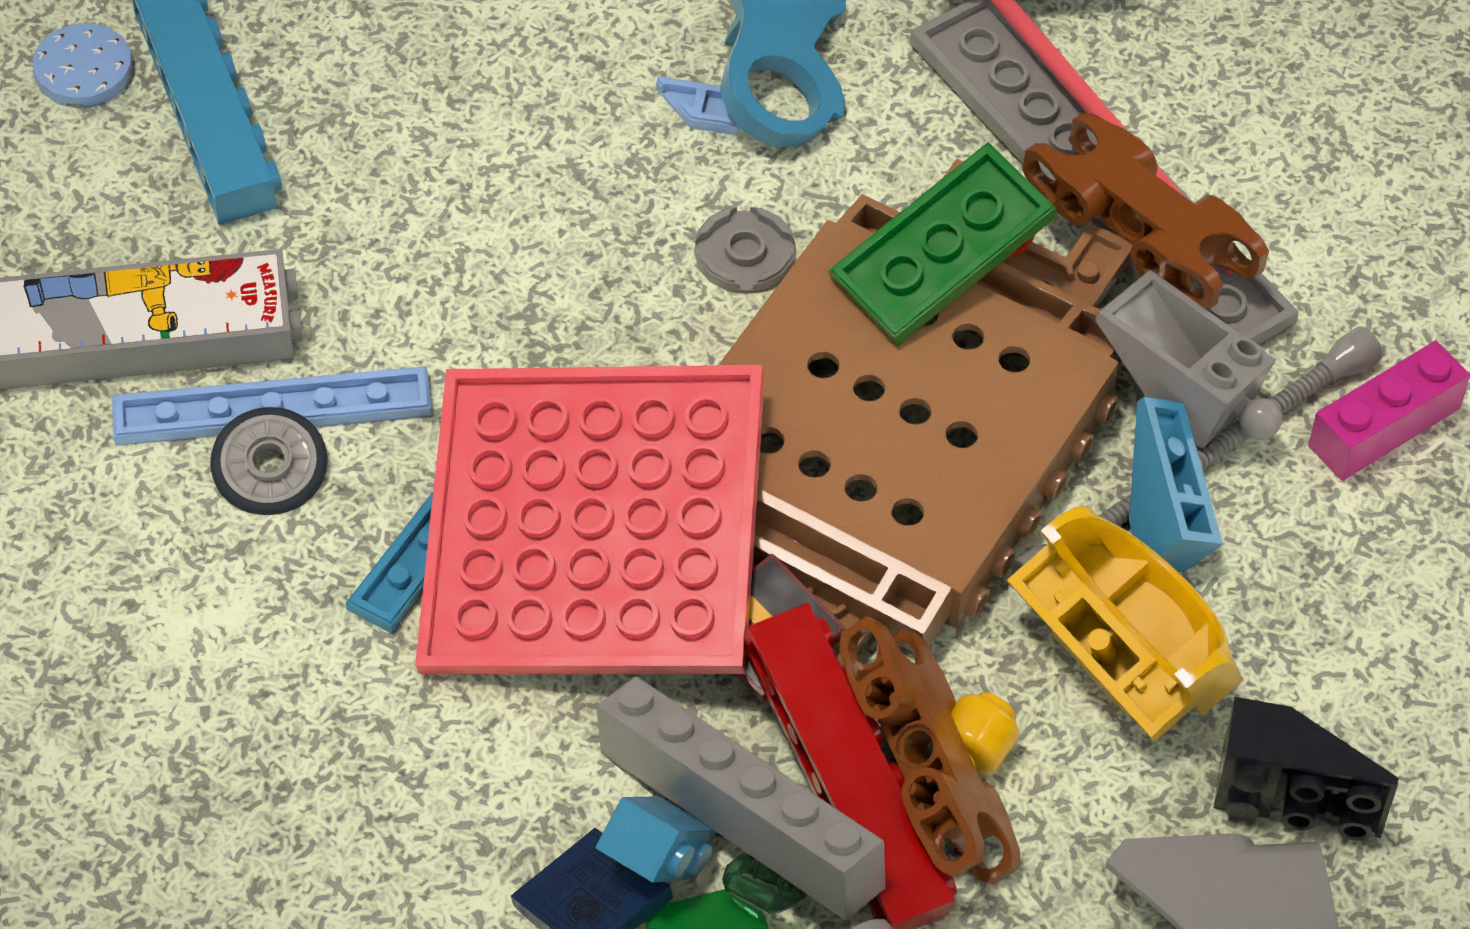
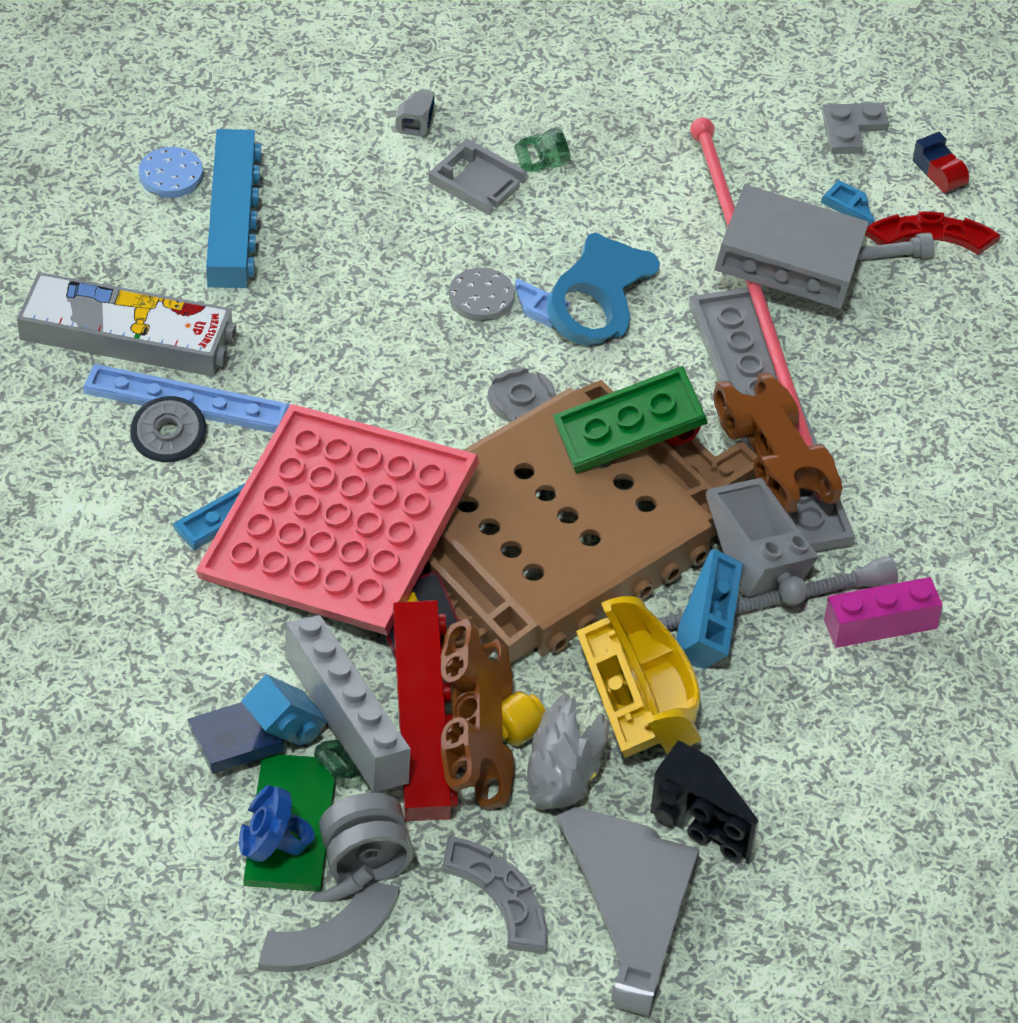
camera: 20 degrees right, 5 degrees down
(617, 115) = (481, 294): none -> light grey tile
(1072, 766) = (563, 759): none -> light grey head

